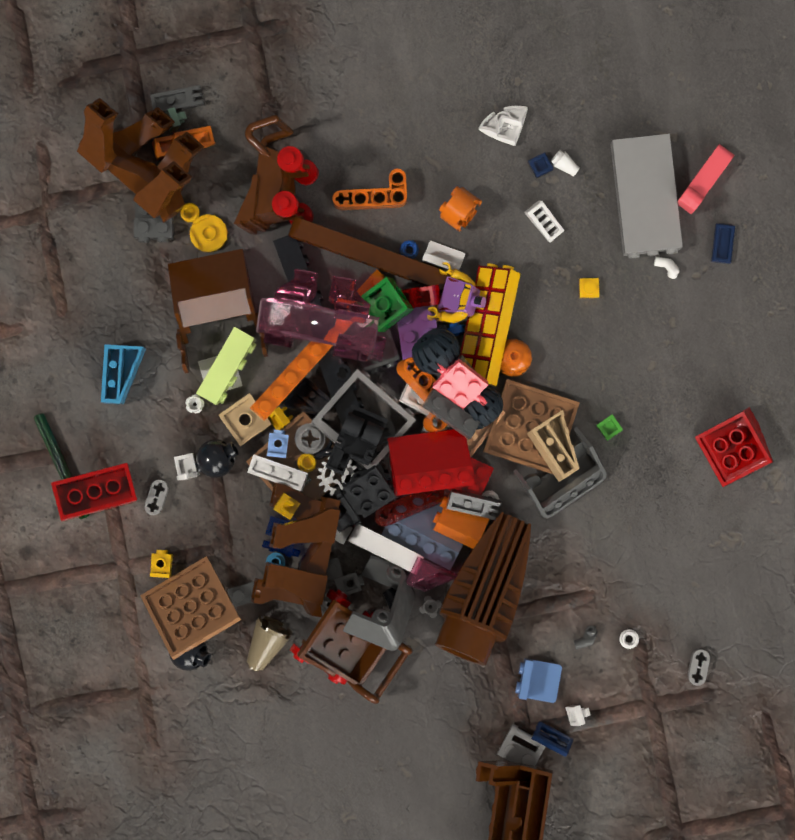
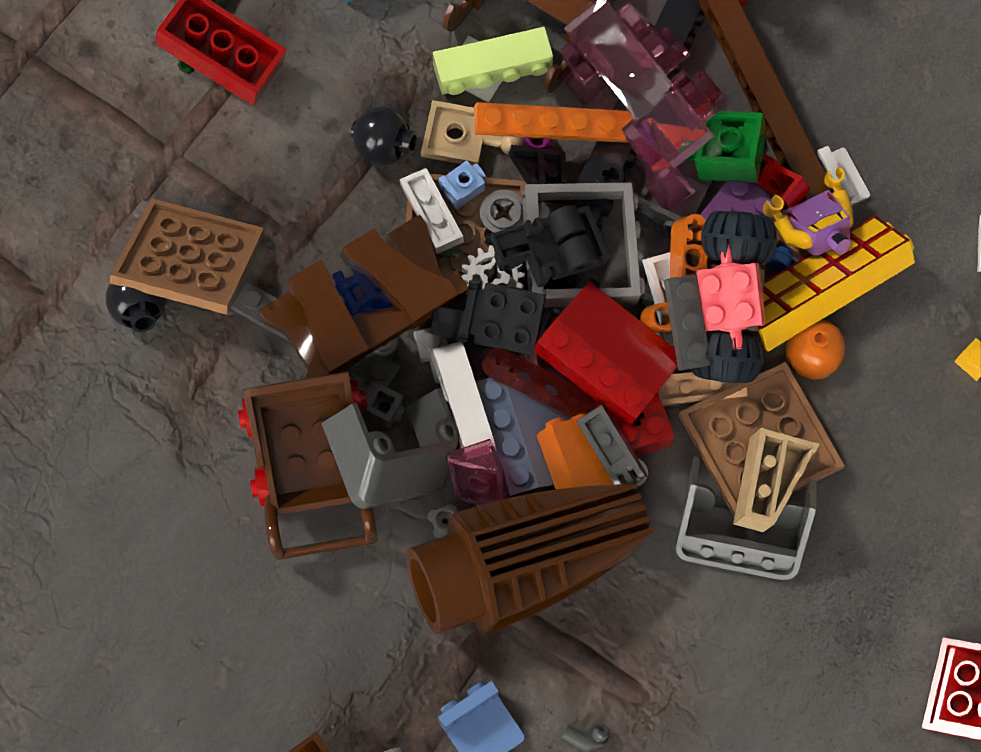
camera: 40 degrees right, 15 degrees down
(160, 499) = (278, 121): light grey beam -> none
(166, 570) = (206, 197): yellow brick -> none
(186, 467) = (339, 122): white tile -> none
(189, 402) = (419, 62): white plate -> none
(266, 642) = (225, 373): dark tan cone -> none
(279, 419) = (492, 163): yellow tile -> none
(286, 506) = (406, 243): yellow tile -> none
(306, 463) = (474, 233): yellow plate -> none
(369, 194) = (795, 22): orange beam -> none
(413, 245) = (818, 130): blue plate -> none
(459, 208) = (912, 139): orange brick -> none
(609, 427) = (851, 527): bright green plate -> none

